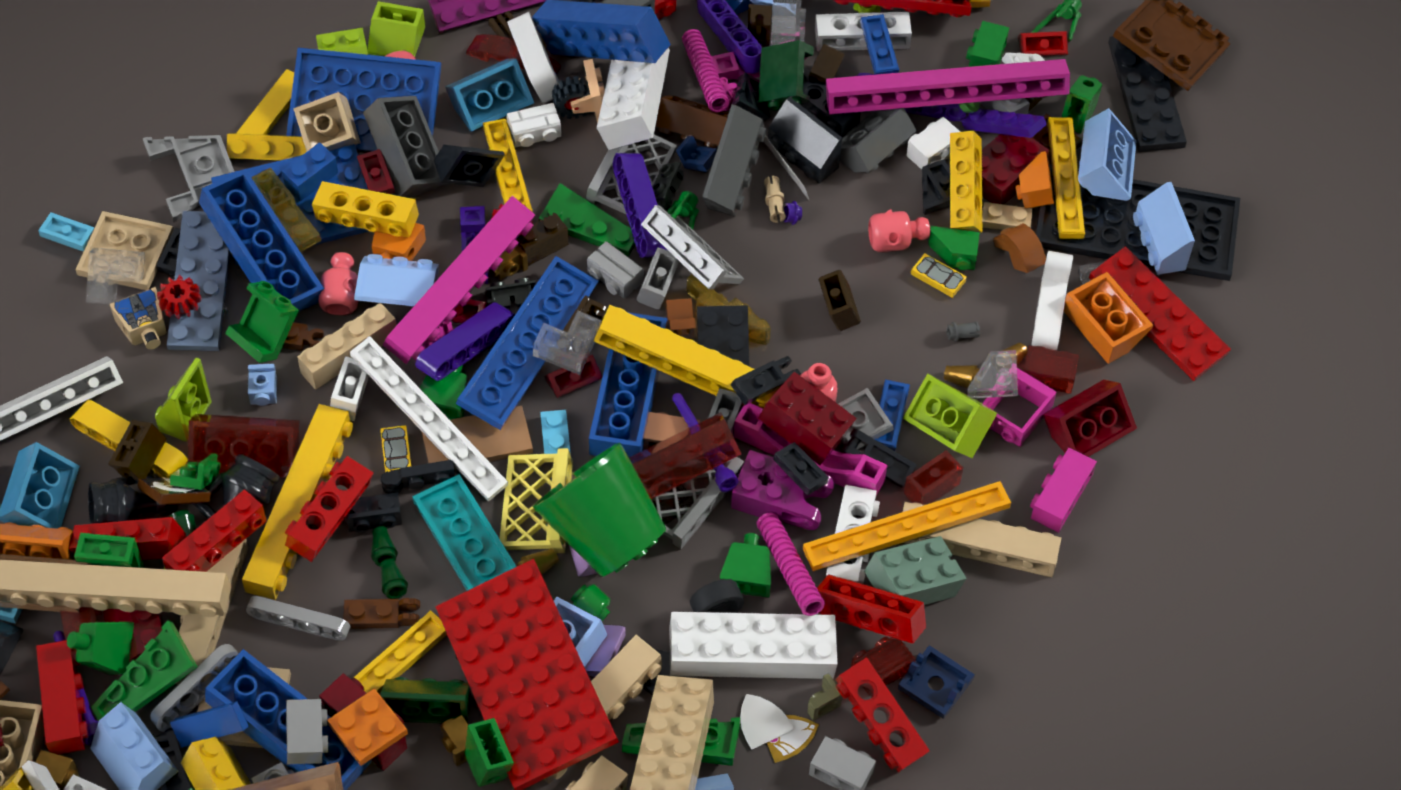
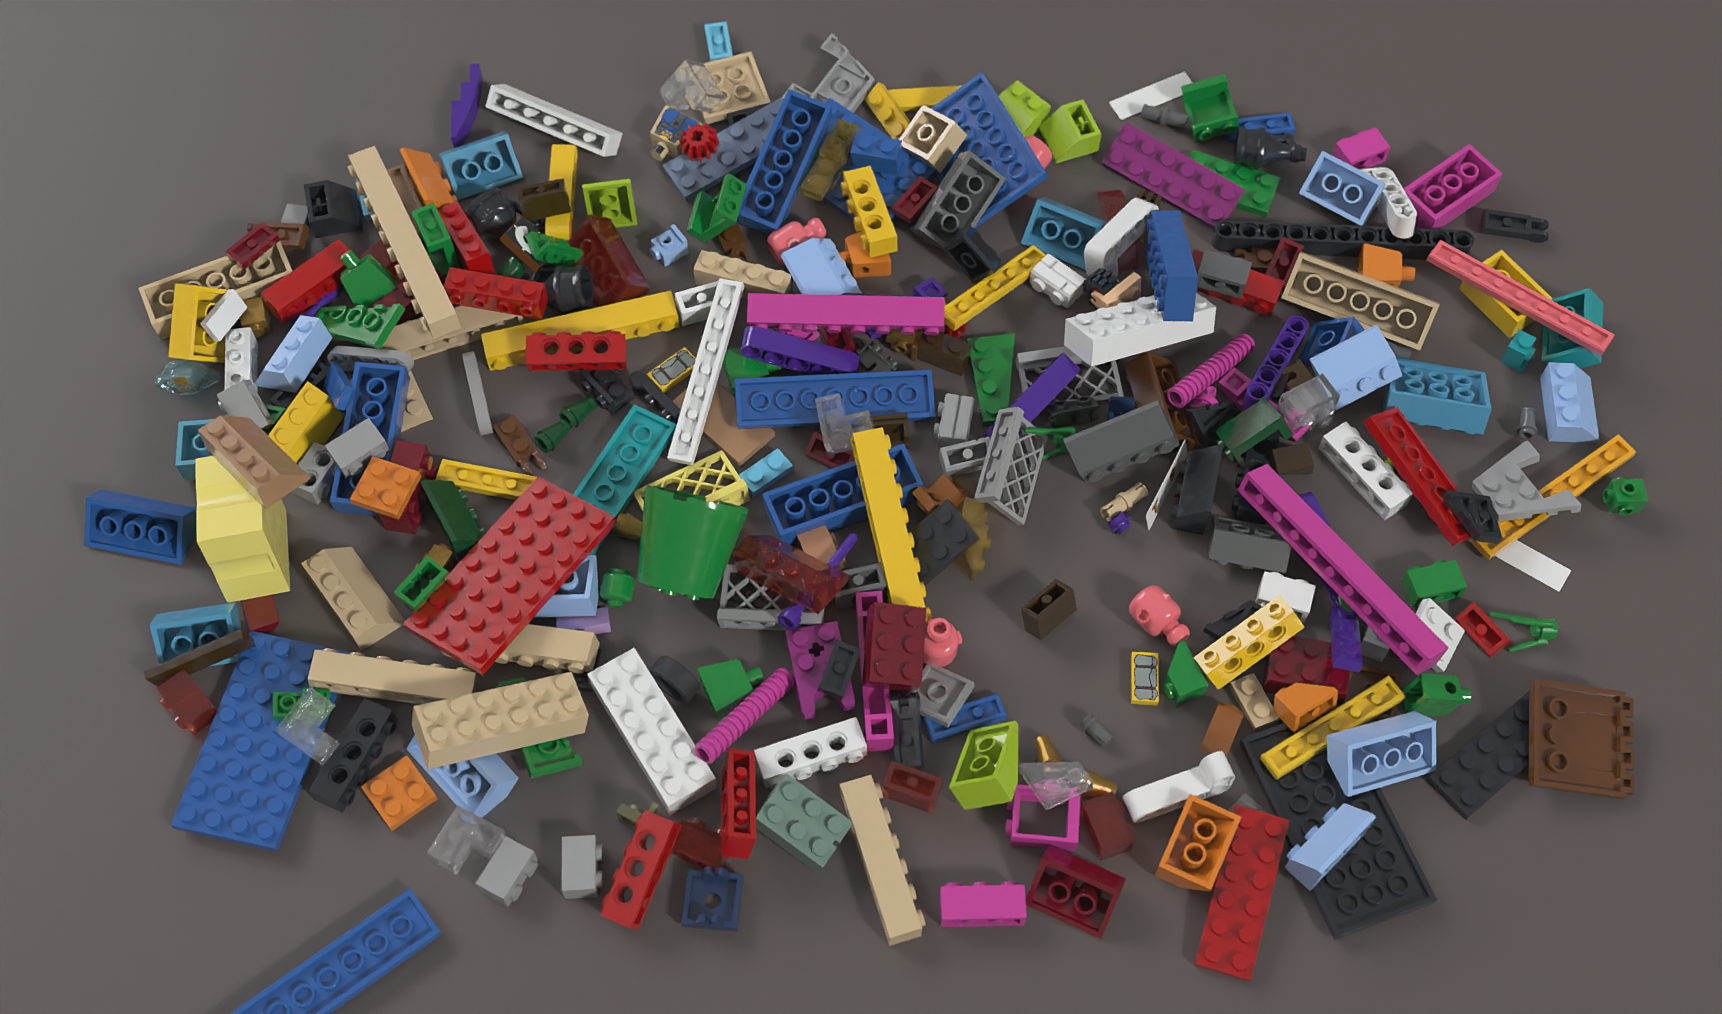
camera: 60 degrees right, 5 degrees up
(762, 380) = (908, 591): black hinge -> none
(762, 721) = (593, 780): white sticker -> none
(793, 741) = (592, 808): sticker -> none
(879, 44) = (1351, 490): blue tile -> none
(906, 526) = (842, 789): light orange plate -> none

